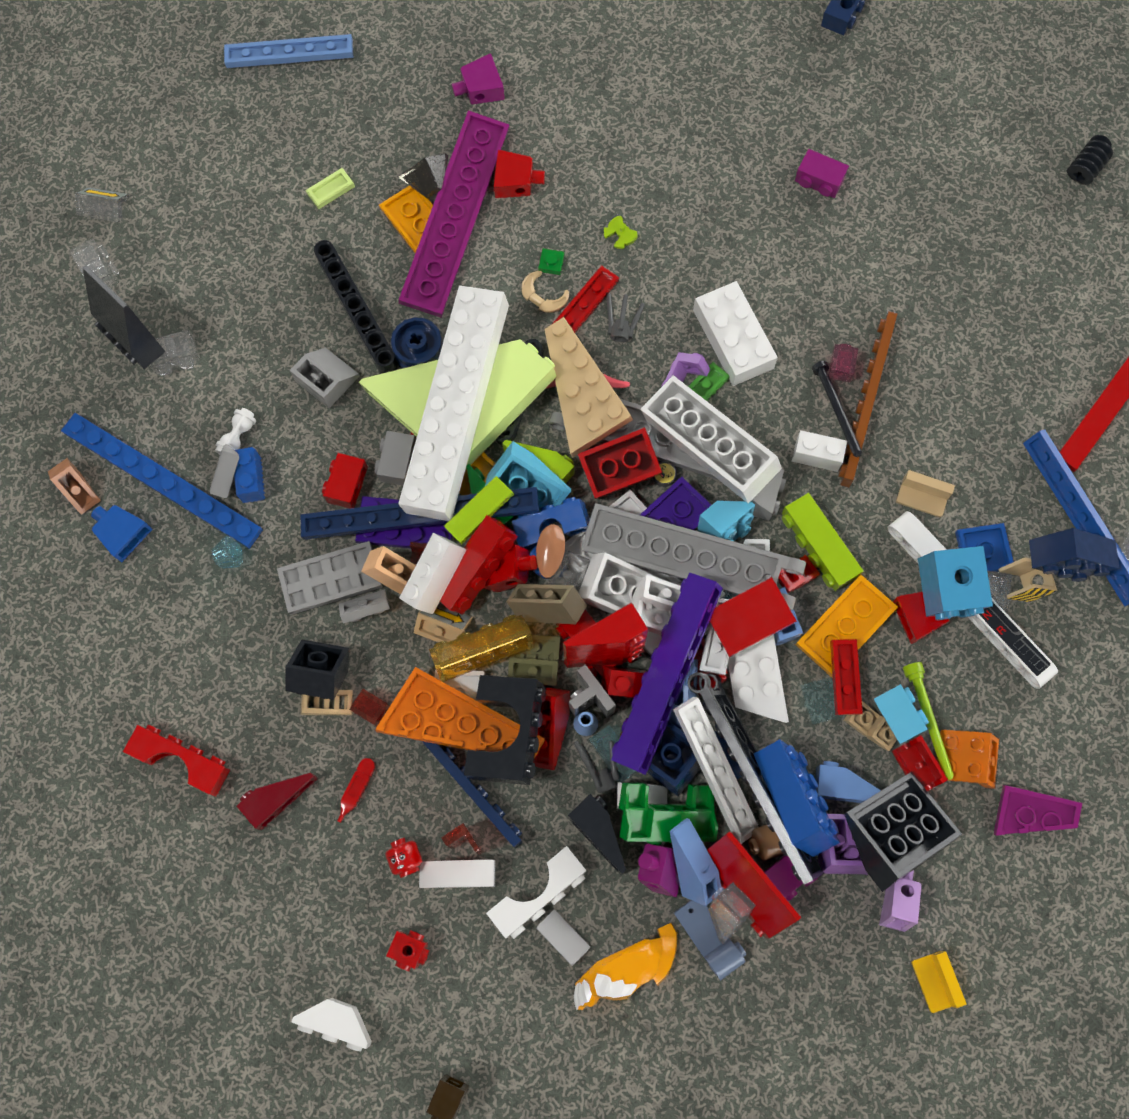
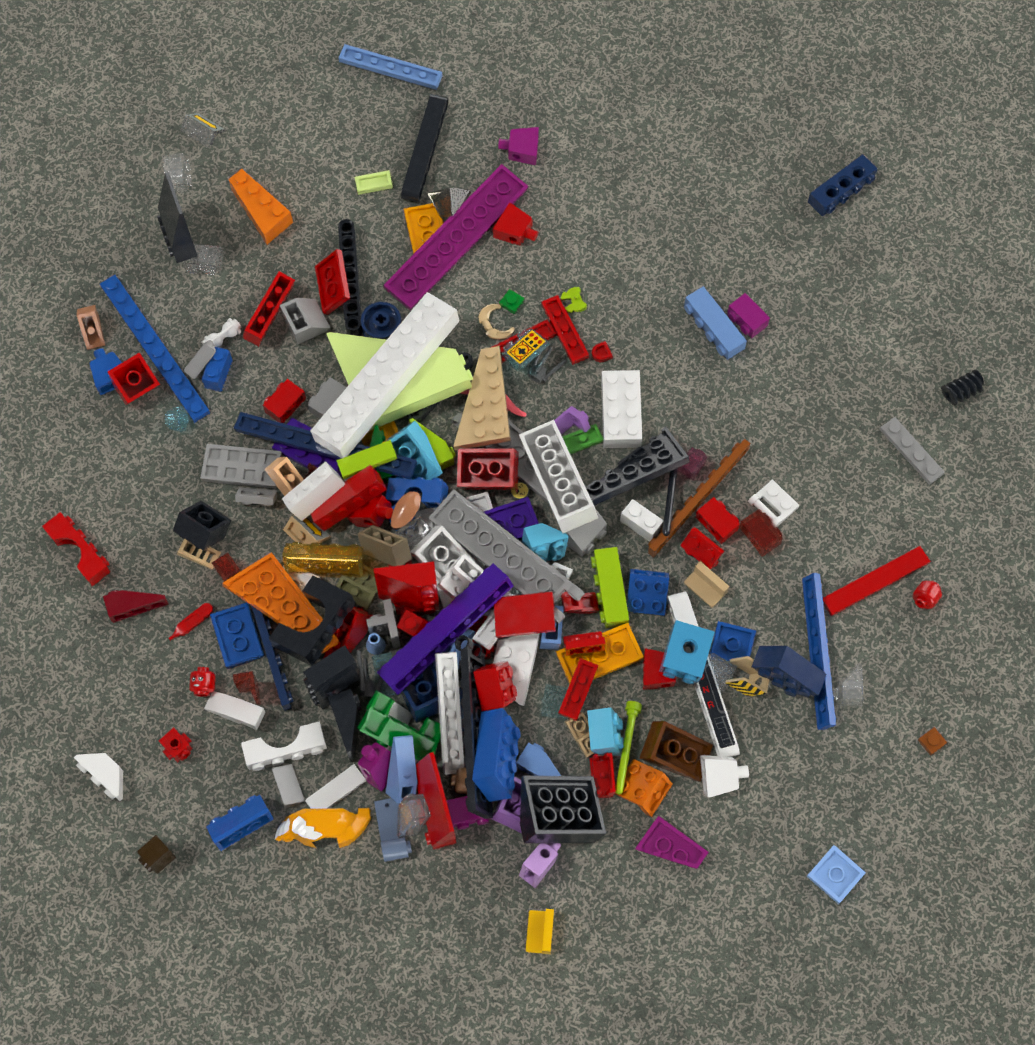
camera: 20 degrees right, 5 degrees down
(153, 527) = (132, 378): none -> red slope
(212, 265) = (261, 207): none -> orange wedge
(277, 380) = (268, 308): none -> red brick
(337, 319) = (332, 282): none -> red tile
(371, 127) = (424, 148): none -> black beam
(417, 782) = (237, 635): none -> blue tile
(526, 1010) = (239, 822): none -> blue slope
(562, 789) = (331, 676): none -> black arch
(596, 308) = (524, 349): none -> slope
(621, 918) = (336, 789): none -> white tile
(627, 269) = (565, 329): none -> red plate
(679, 279) = (601, 352): none -> red tile
(753, 714) = (495, 685): none -> red brick
(789, 196) = (715, 323): none -> medium blue brick
(791, 387) = (640, 466): none -> black wing
(827, 619) = (584, 643): none -> red bracket
(865, 527) = (647, 592): none -> blue bracket
(901, 415) = (717, 520): none -> red brick
(903, 454) = (702, 548): none -> red bracket
(952, 365) = (777, 499): none -> white plate
(955, 409) = (761, 532): none -> clear red brick
(985, 699) = (675, 750): none -> reddish brown slope
(1051, 707) = (721, 774): none -> white torso
(1068, 252) = (912, 450): none -> light grey plate

